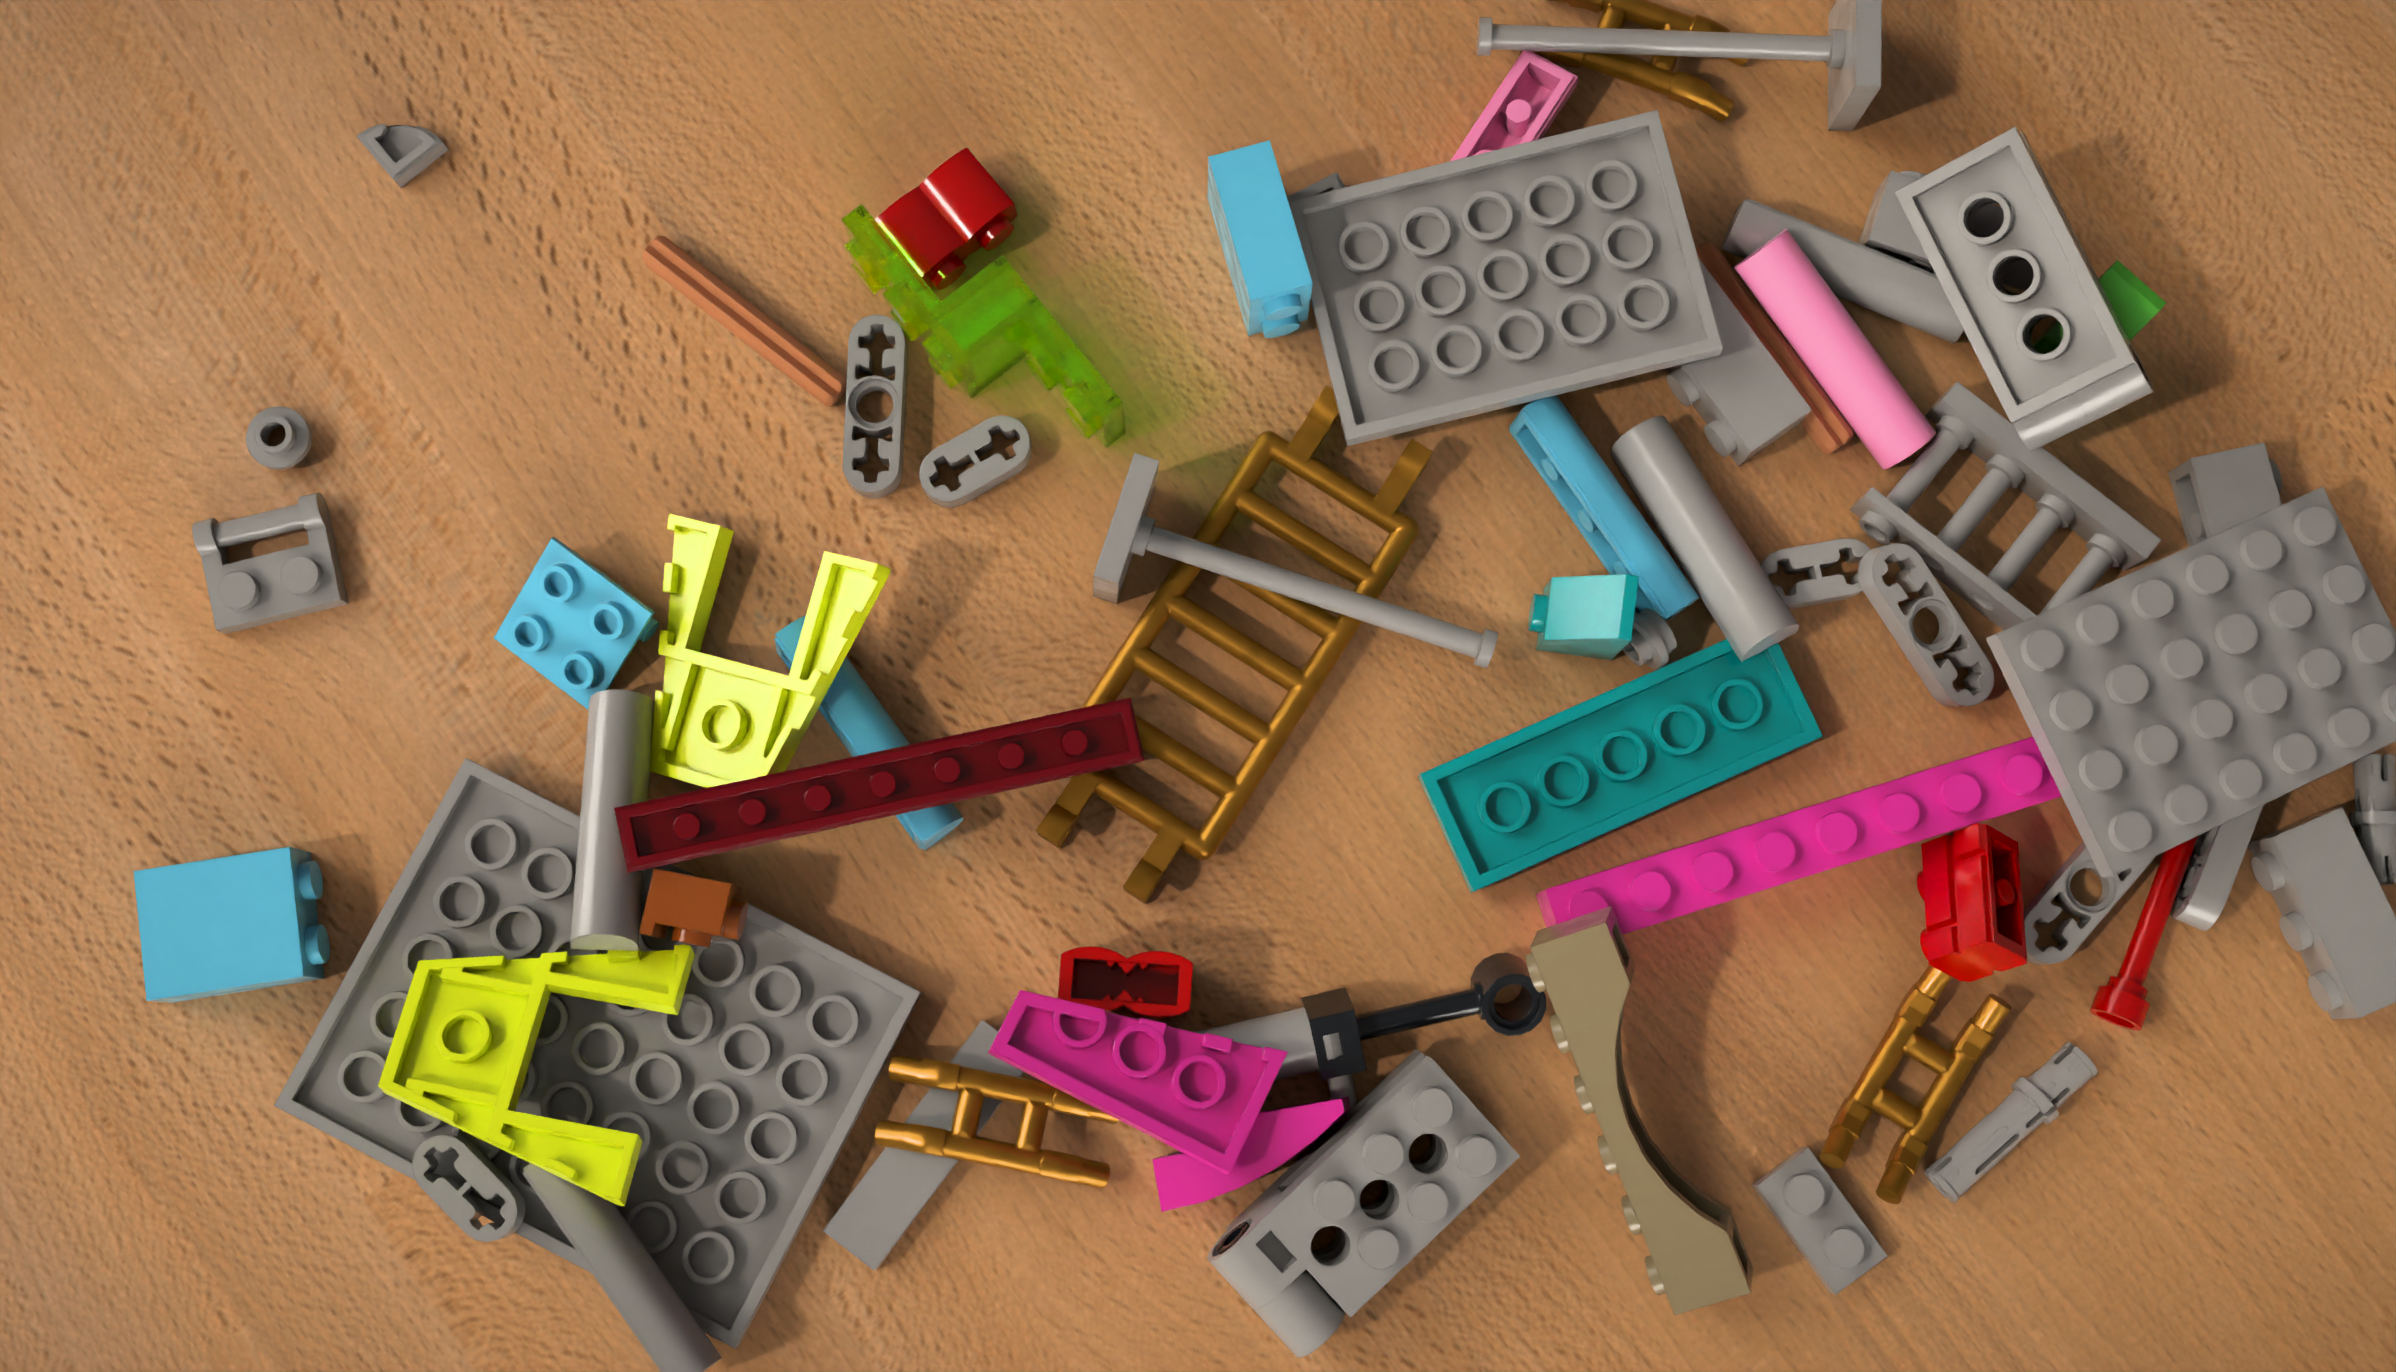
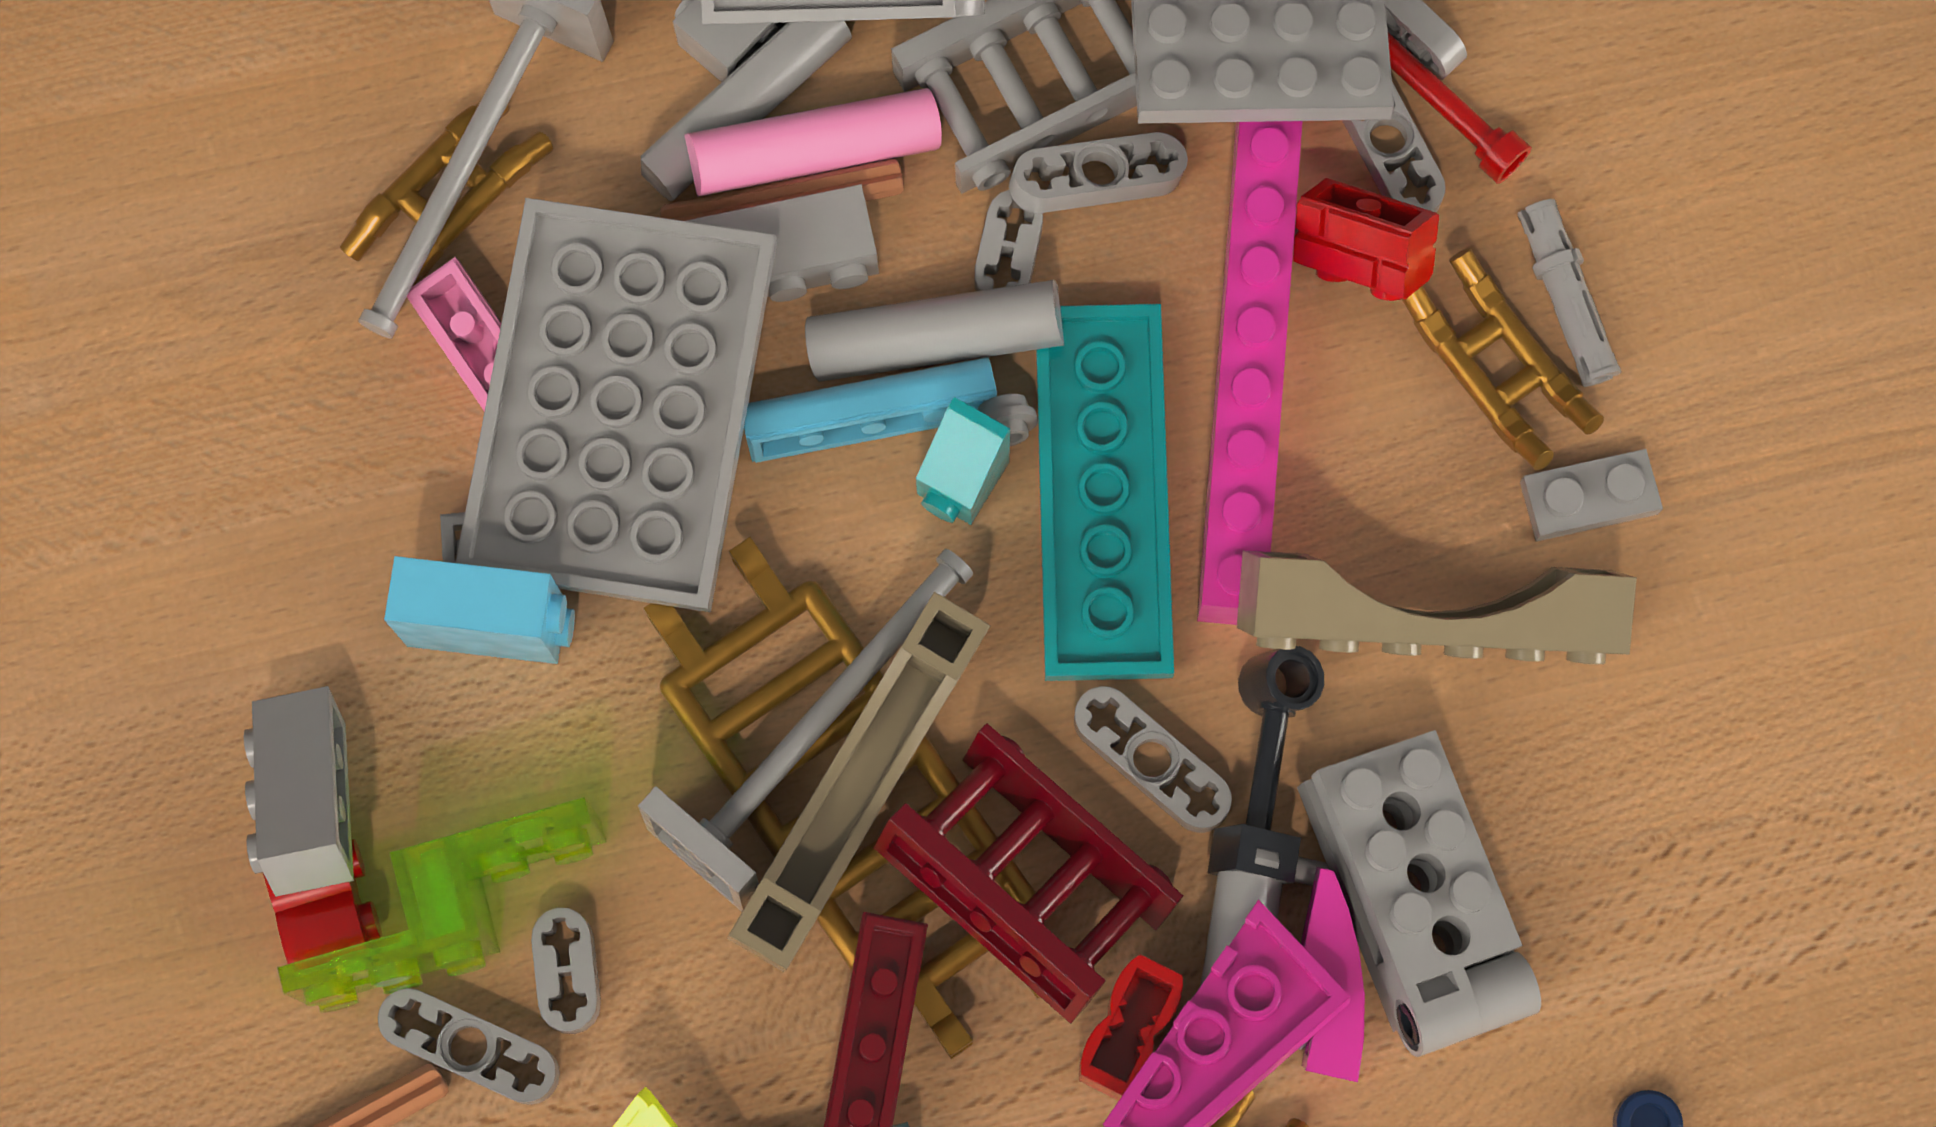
camera: 65 degrees left, 5 degrees down
(1030, 158) = (299, 792): none -> light grey brick
(1169, 842) = (988, 913): none -> dark red fence
(1243, 642) = (858, 782): none -> dark tan arch
(1417, 864) = (1105, 739): none -> light grey beam

